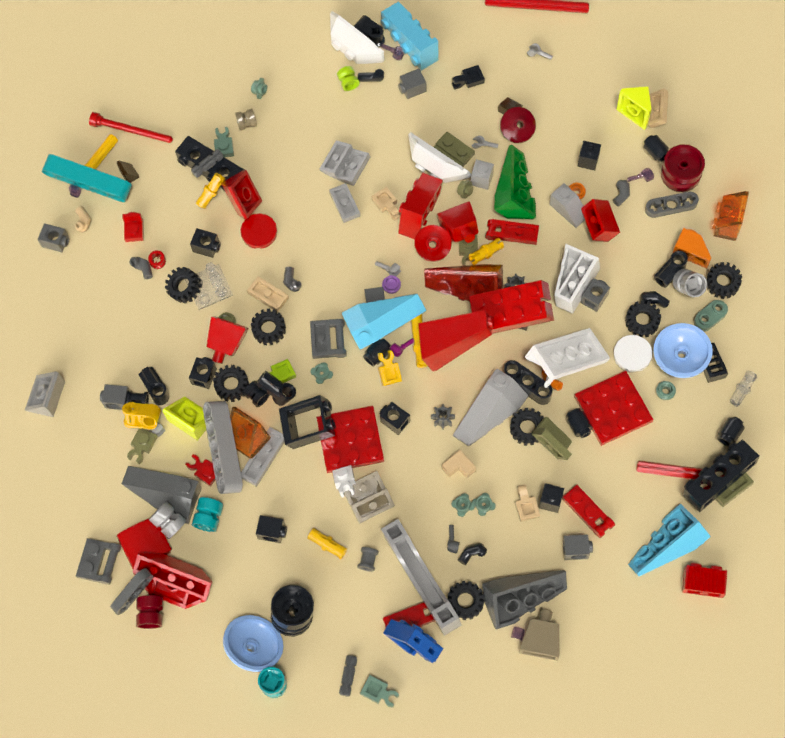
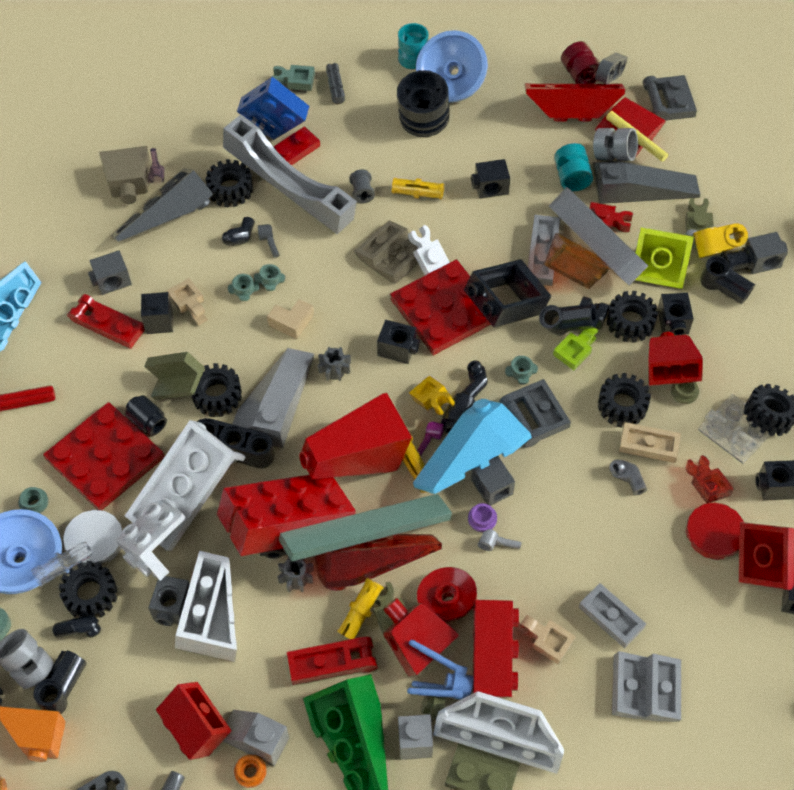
camera: 155 degrees right, 10 degrees down
(147, 524) = (642, 140): none -> light yellow bar
(246, 256) = (709, 483): none -> clear red plate
(353, 375) = (477, 377): none -> black arm
(449, 193) = (455, 686): none -> medium blue plant
(467, 287) = (364, 527): none -> sand green tile
(597, 324) = (146, 534): none -> white bracket
(655, 328) = (61, 563): none -> clear axle

